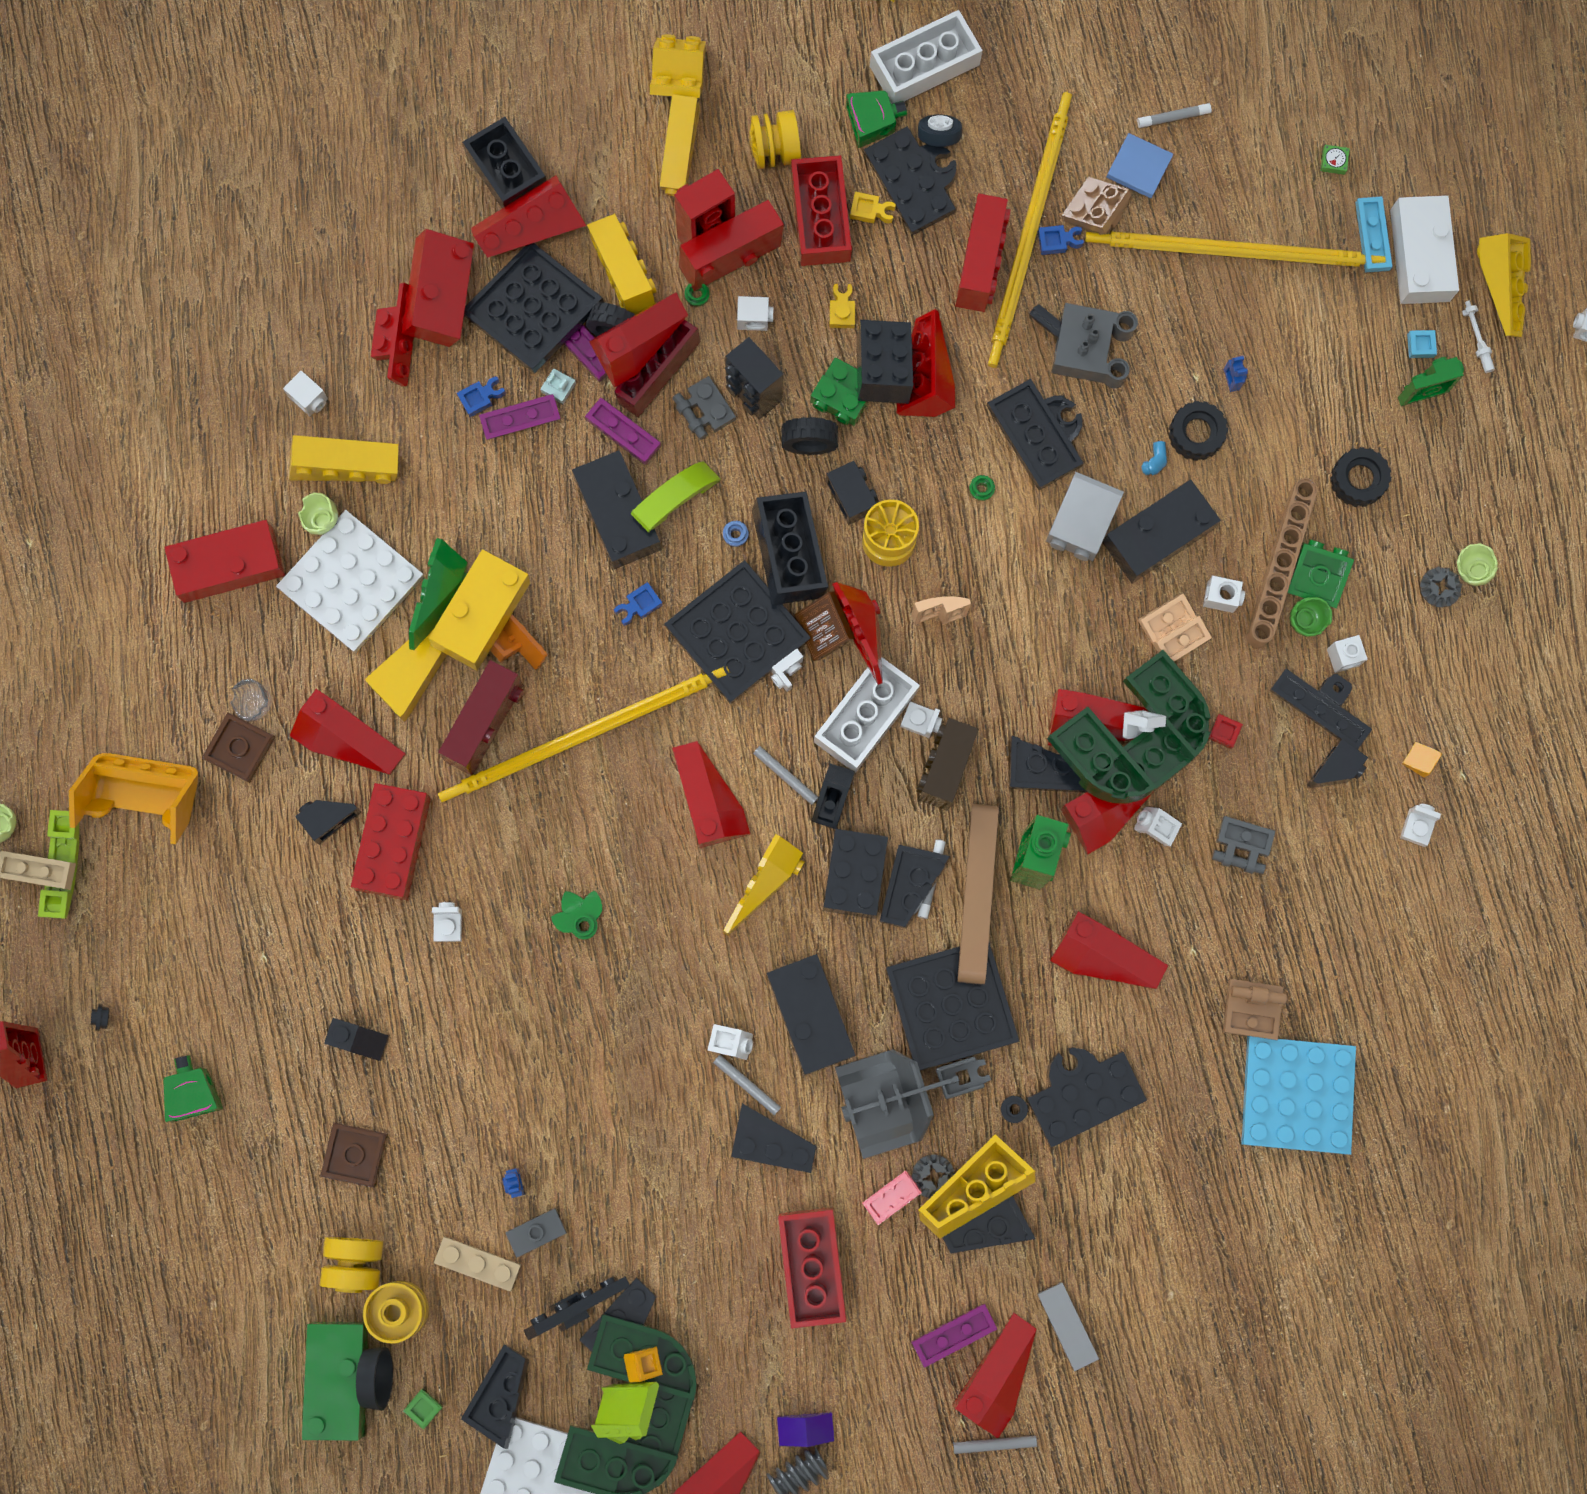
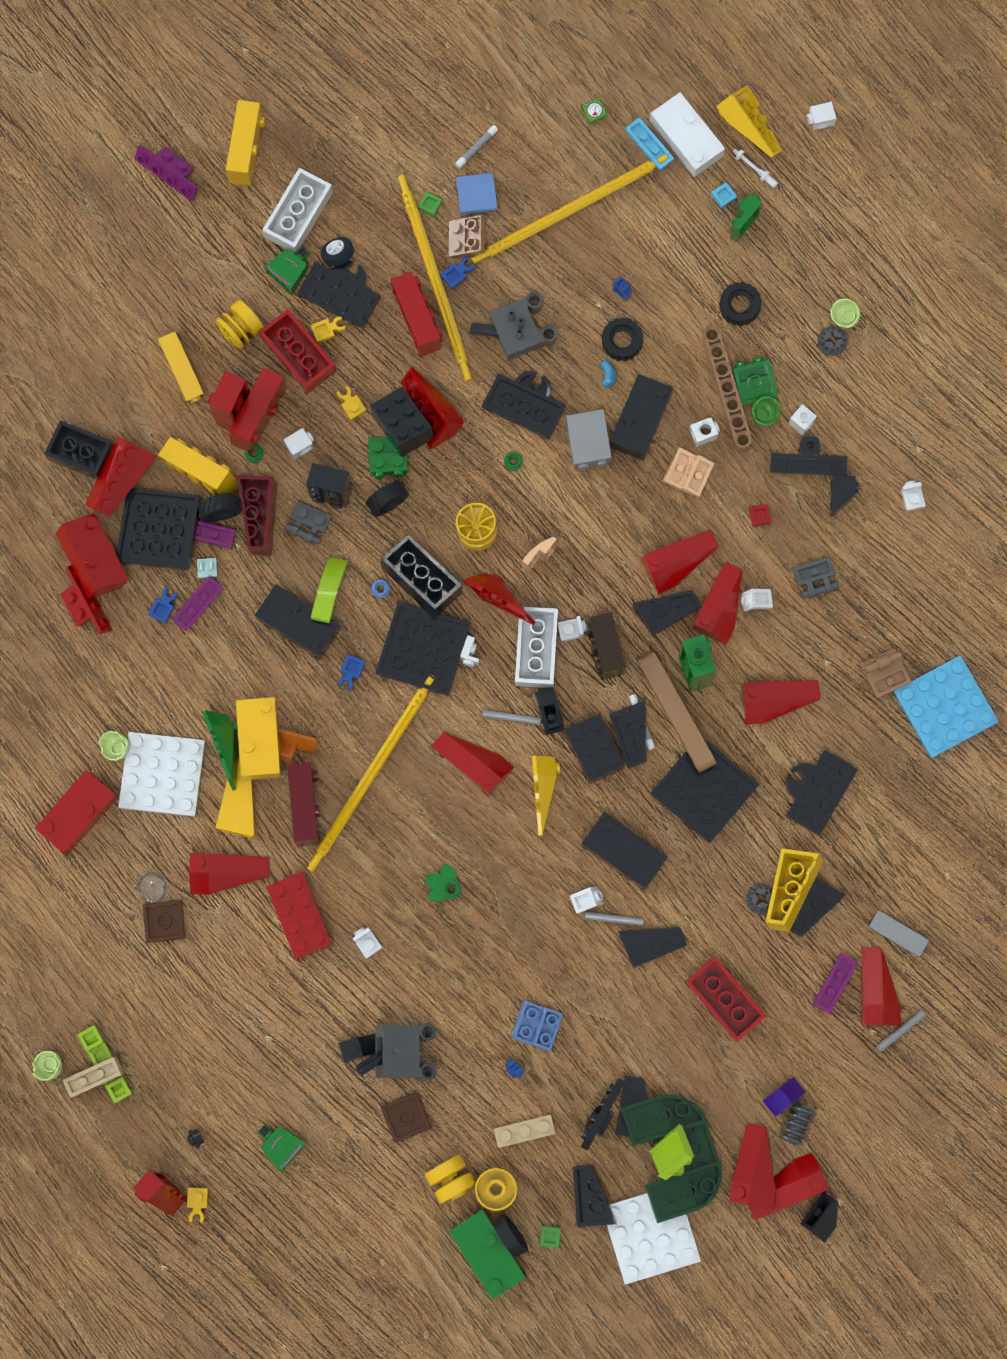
camera: 25 degrees left, 0 degrees up
(55, 1091) = (197, 1199): none -> yellow plate
(135, 786) = (121, 984): light orange windscreen -> none
(306, 394) = (53, 676): white brick -> none
(325, 818) = (248, 928): black slope -> none
(342, 460) = (106, 702): yellow wedge -> none
(392, 1076) = (399, 1052): none -> dark grey piece
(536, 1232) = (547, 1089): dark grey plate -> none
(574, 1149) = (536, 1025): none -> medium blue slope
(623, 431) = (267, 570): magenta plate -> none
(635, 341) = (241, 509): red wedge -> none
(643, 1364) = (664, 1121): light orange slope -> none
(678, 66) = (146, 317): yellow bracket -> none
(825, 625) = (475, 609): reddish brown tile -> none
(851, 491) = (435, 516): black brick -> none
(890, 1099) = (705, 869): dark grey piece -> none
(892, 1197) = (745, 927): coral plate -> none
(1005, 1109) = (782, 833): black plate -> none
(1079, 145) = (430, 204): none -> bright green tile
(1141, 721) = (705, 543): white bracket -> none
(1151, 758) = (727, 559): dark green plate -> none
(1421, 759) = (888, 455): light orange slope -> none

